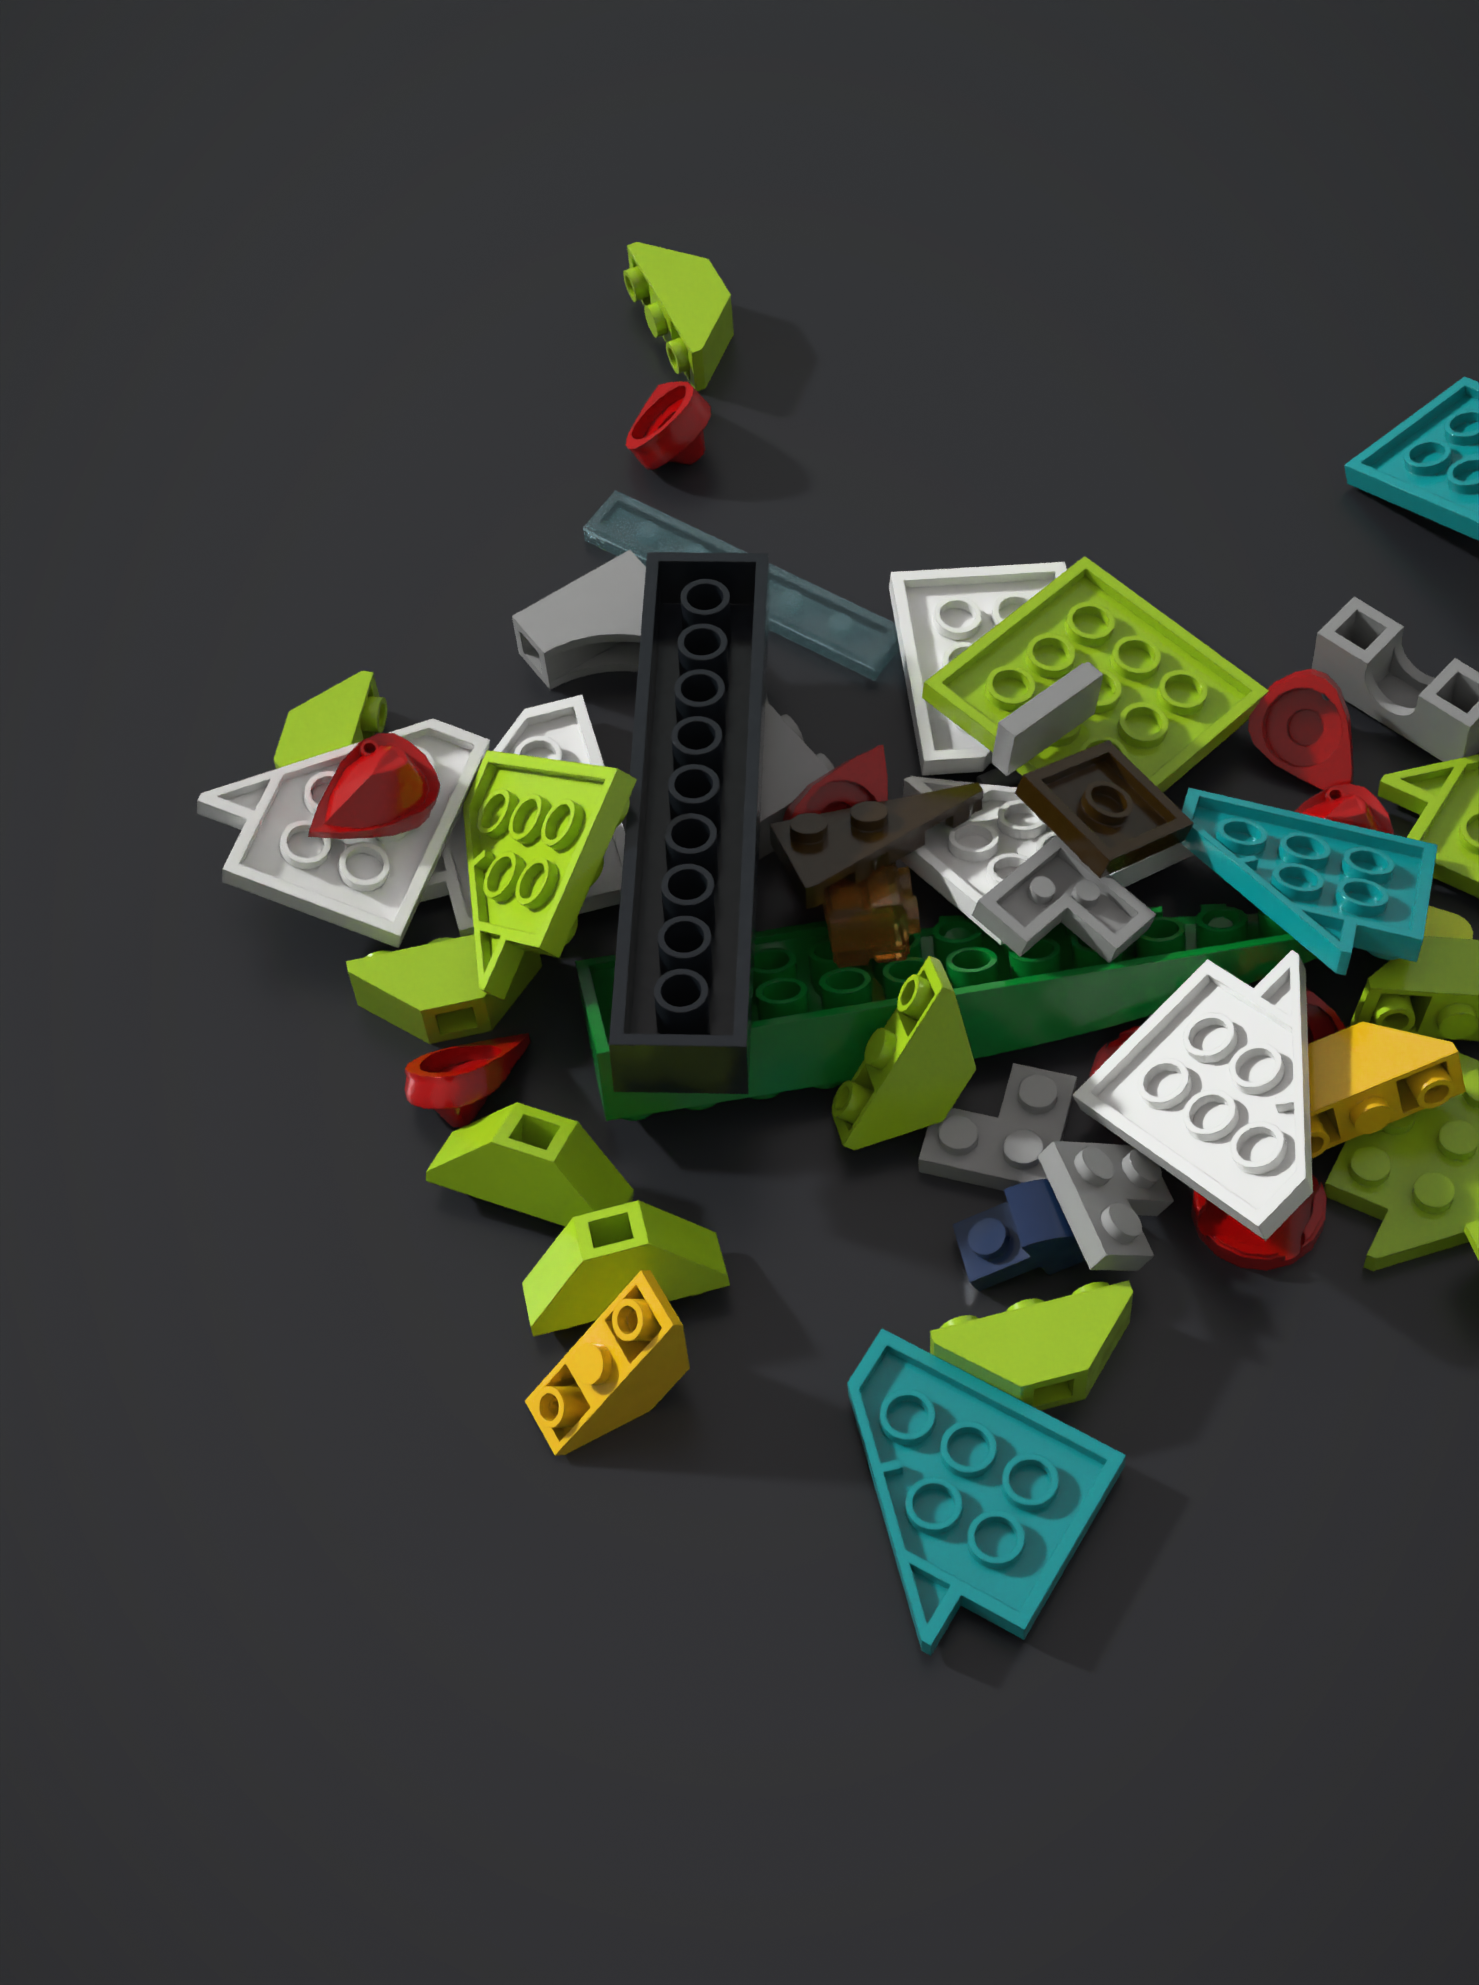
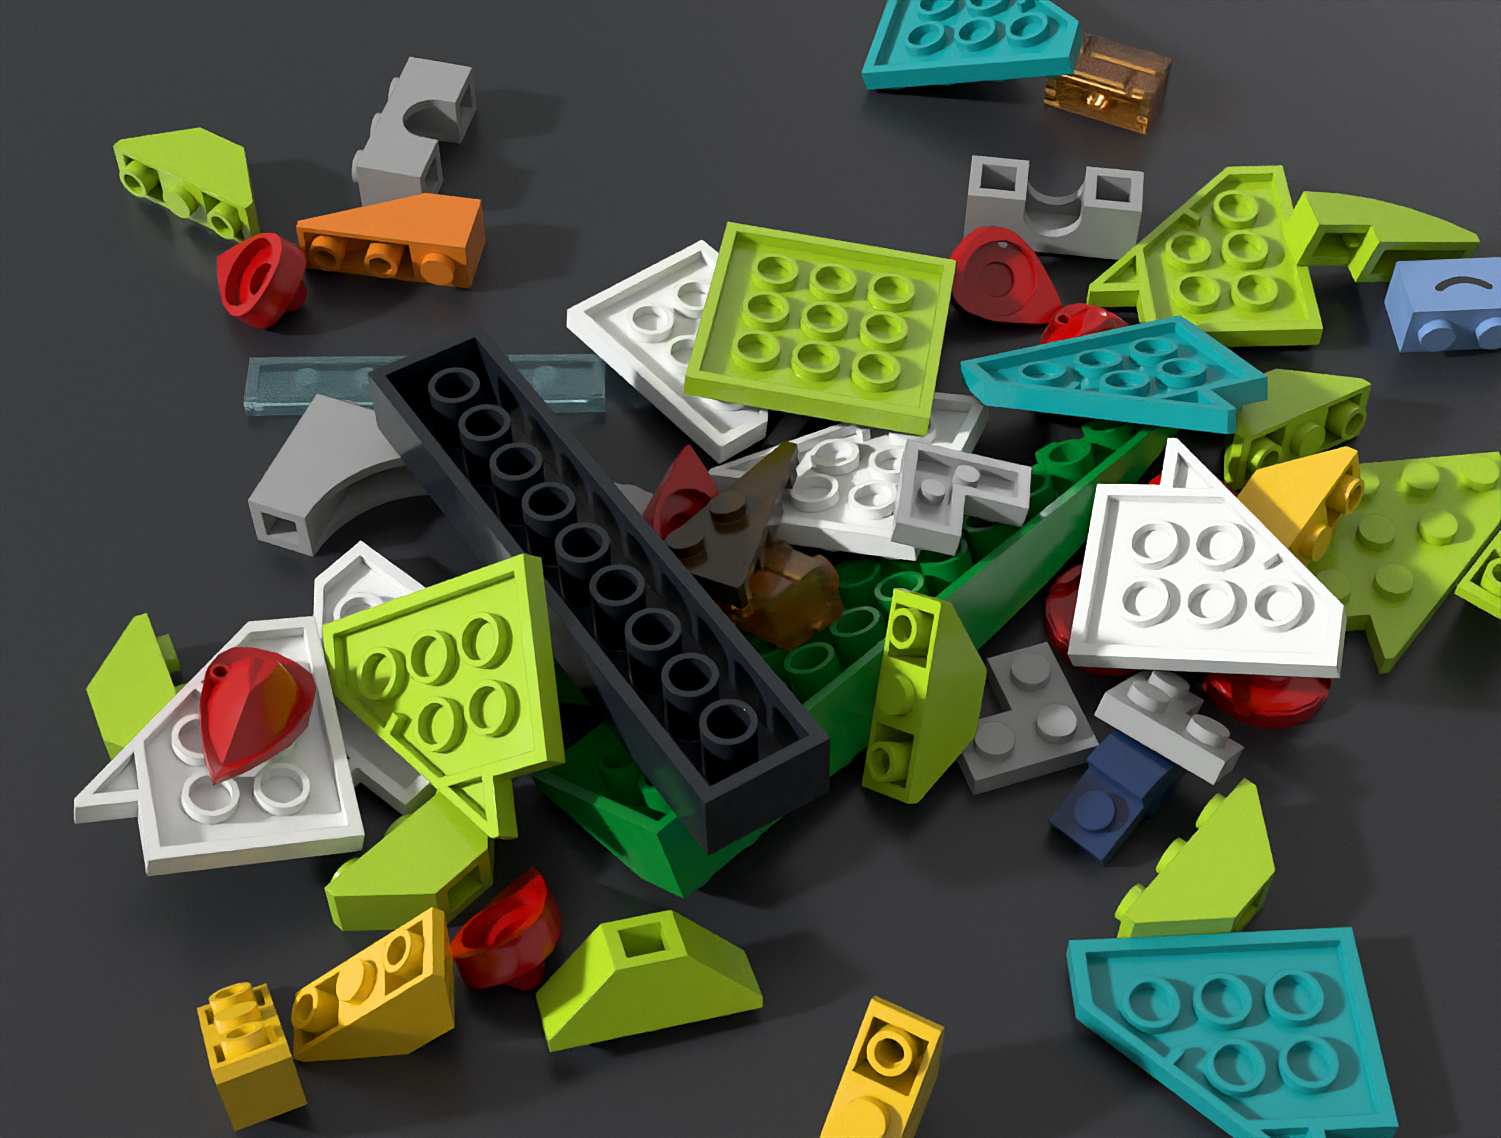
camera: 40 degrees left, 5 degrees down
(211, 1058) = (249, 1055): none -> yellow slope
(333, 1068) = (381, 998): none -> yellow slope
(605, 1252) = (794, 1027): lime slope -> none
(815, 441) = (401, 239): none -> orange slope
(922, 320) = (424, 106): none -> light grey arch
(1046, 718) = (820, 353): light grey tile -> none
(1104, 808) = (929, 402): dark brown plate -> none

